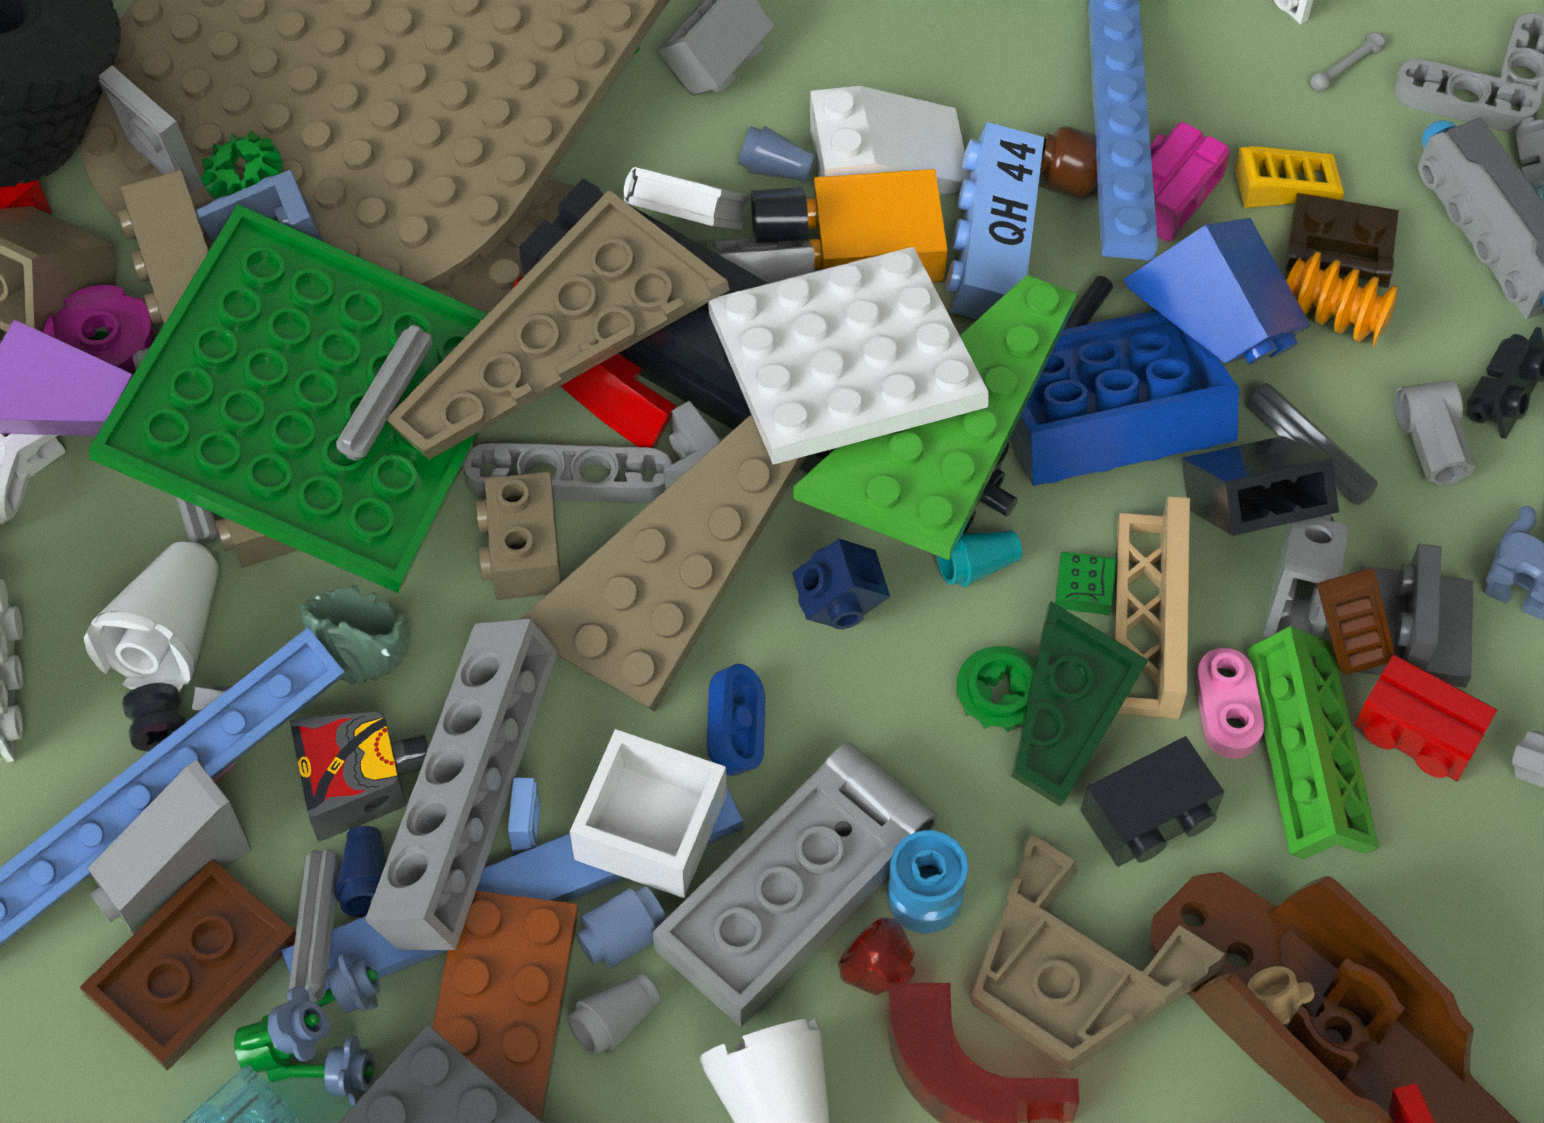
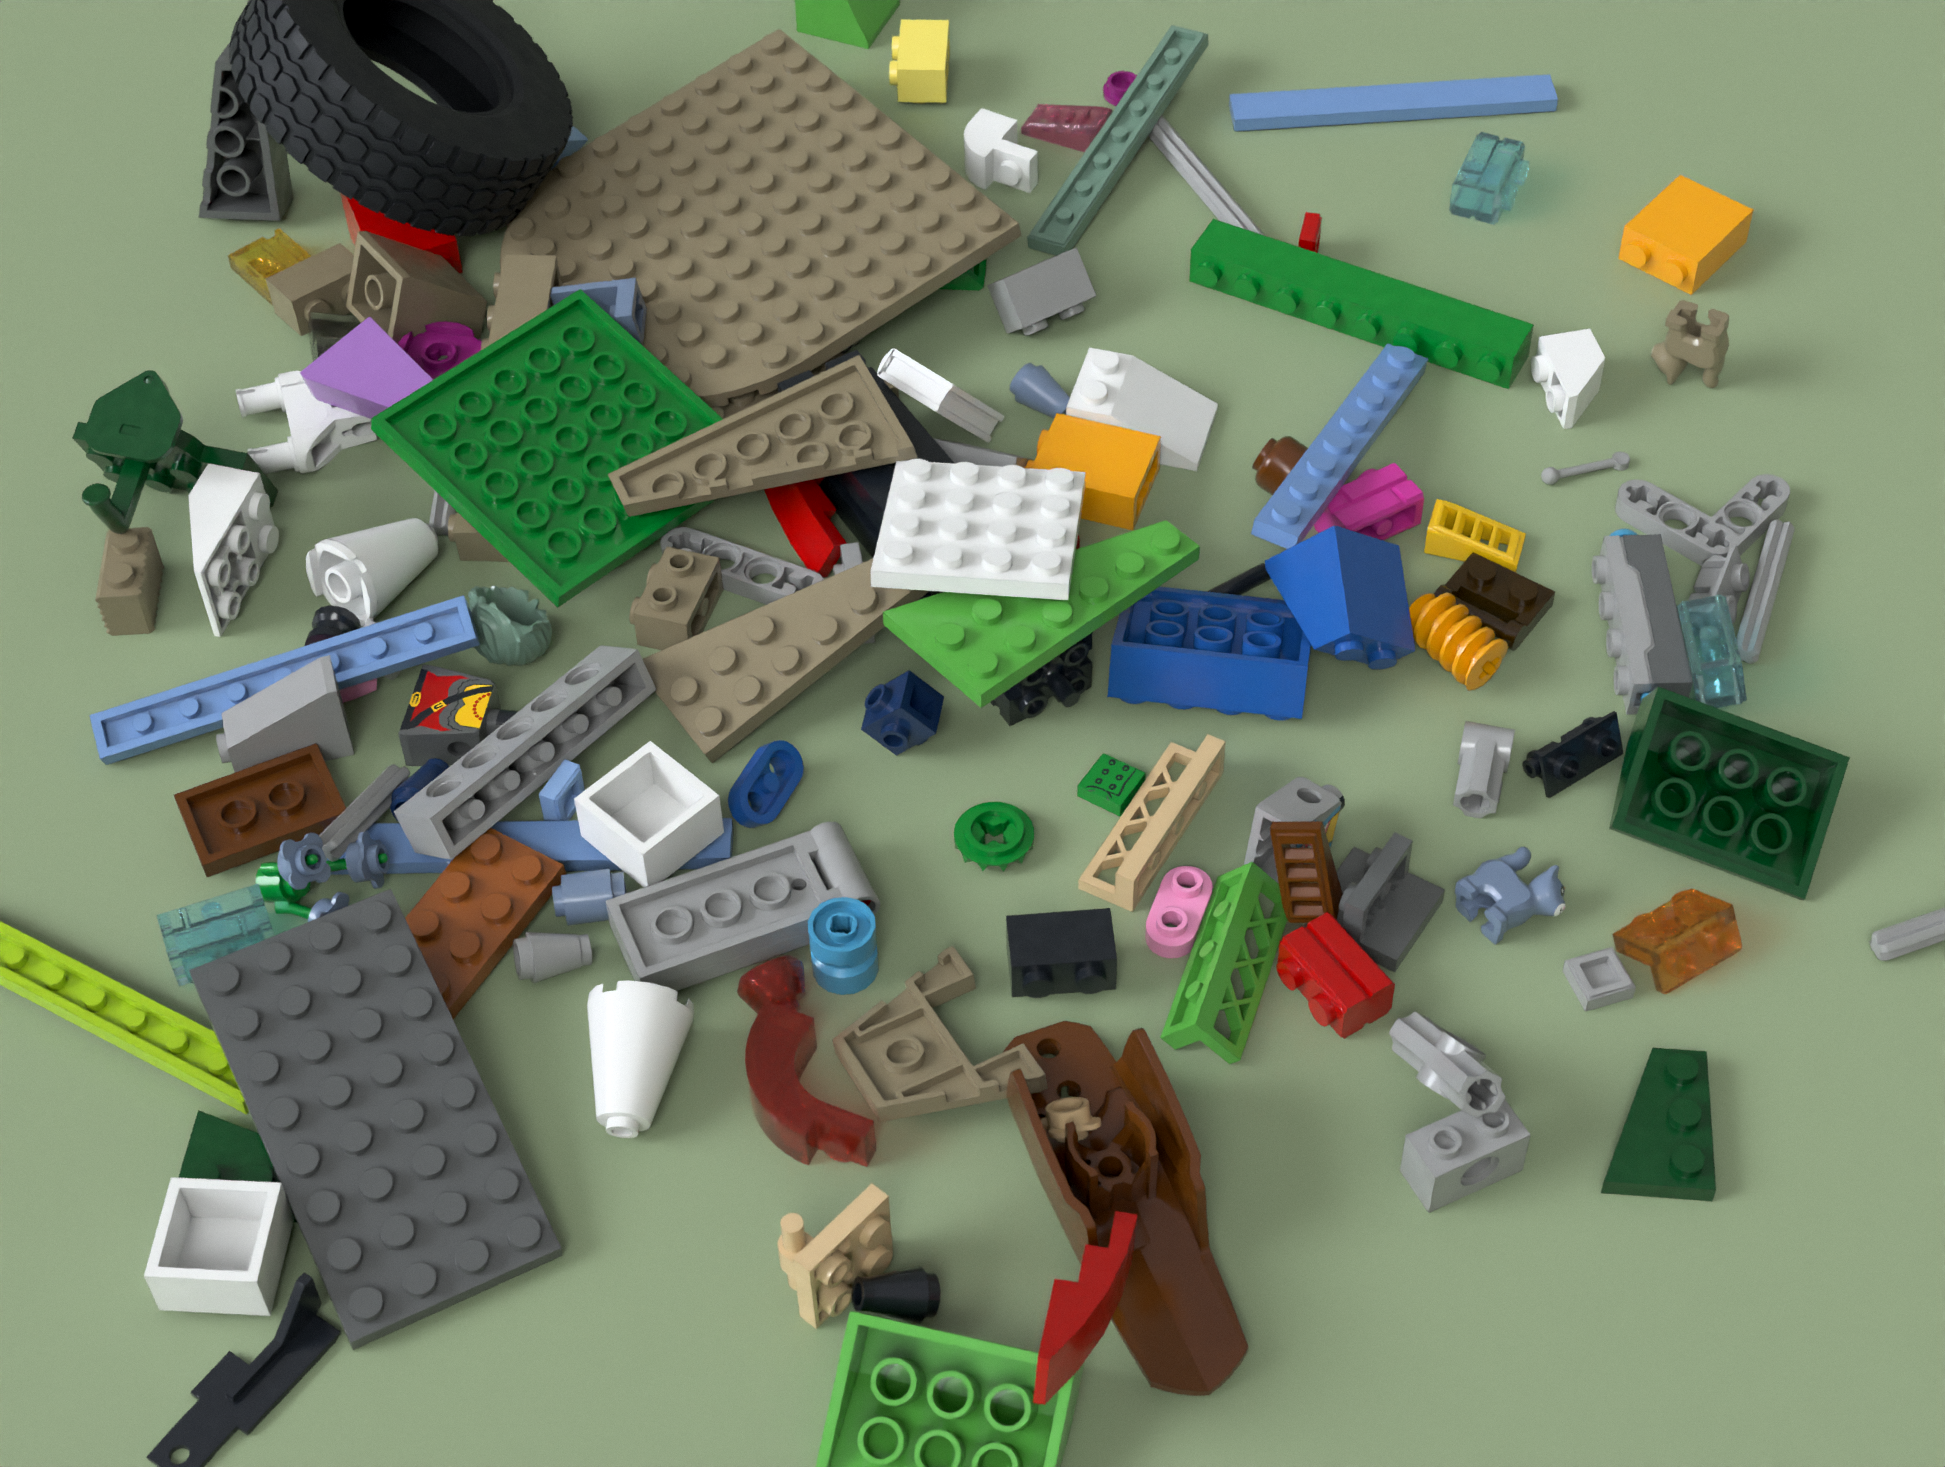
camera: 25 degrees right, 10 degrees down
(148, 127) = (549, 220): light grey tile -> none
(261, 158) = (624, 261): green gear -> none
(384, 393) = (618, 455): light grey axle -> none
(779, 215) = (1012, 433): black beam -> none
(980, 556) = (1031, 732): teal cone -> none
(996, 220) = (1201, 480): light blue brick -> none
(1070, 702) = (1041, 860): dark green wing -> none
(1260, 485) = (1285, 747): black brick -> none
(1293, 424) = (1369, 745): dark grey axle -> none

